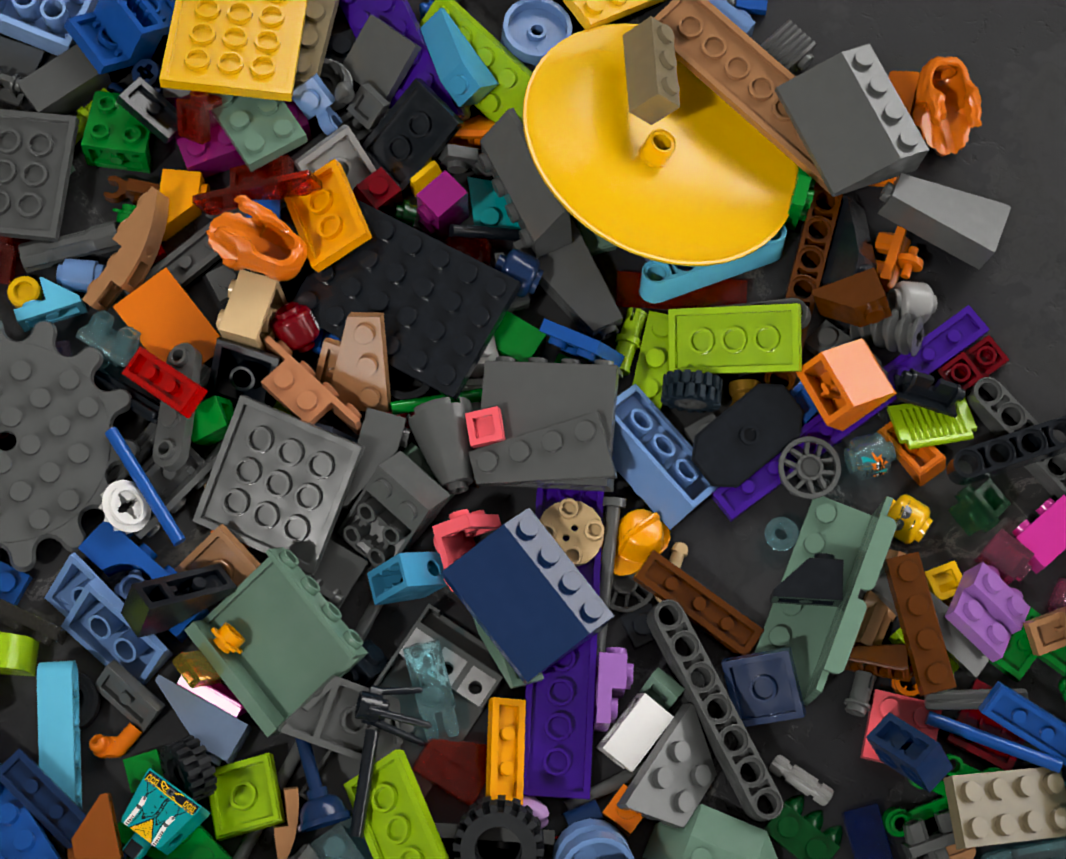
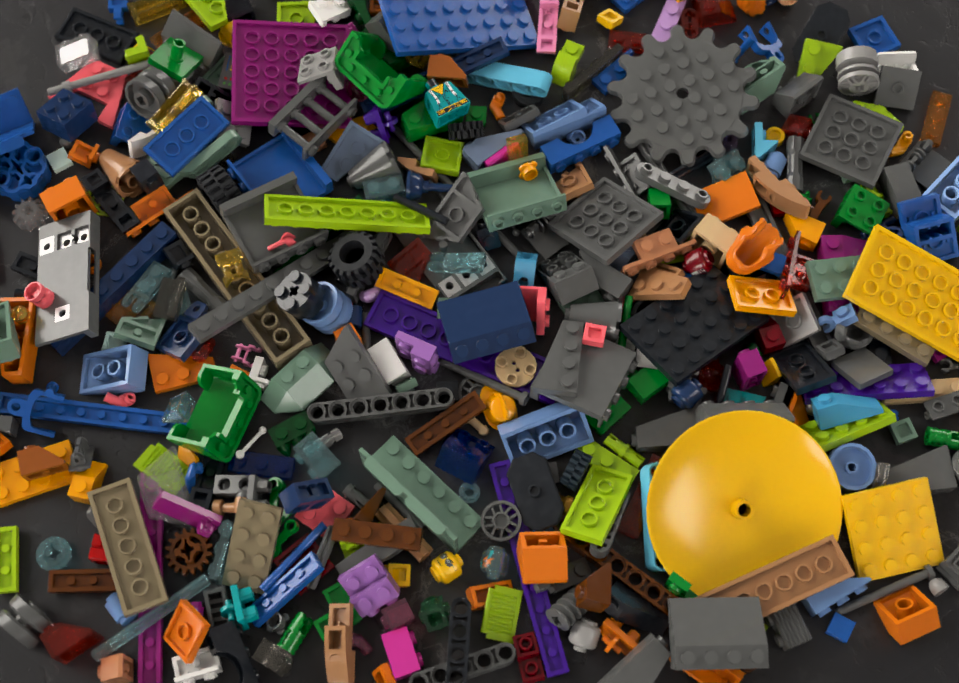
camera: 115 degrees right, 5 degrees down
(135, 517) = (618, 150): white gear -> none
(145, 486) = (631, 154): blue bar -> none
(150, 109) = (863, 225): black plate -> none
(164, 382) = (687, 180): red tile -> none
(171, 599) = (559, 147): black slope -> none
(194, 115) = (850, 242): clear red bracket -> none
(373, 708) = (456, 222): black plant -> none
(579, 344) = (628, 414): blue plate -> none
(651, 70) = (795, 518): dark tan brick -> none
(734, 558) = (464, 456): none -> clear blue slope
(764, 687) = (382, 437): dark blue plate -> none
(813, 583) = (430, 489): black slope -> none
(833, 774) = (315, 456): none -> clear light blue bracket
(916, 389) = (518, 612): black hinge -> none

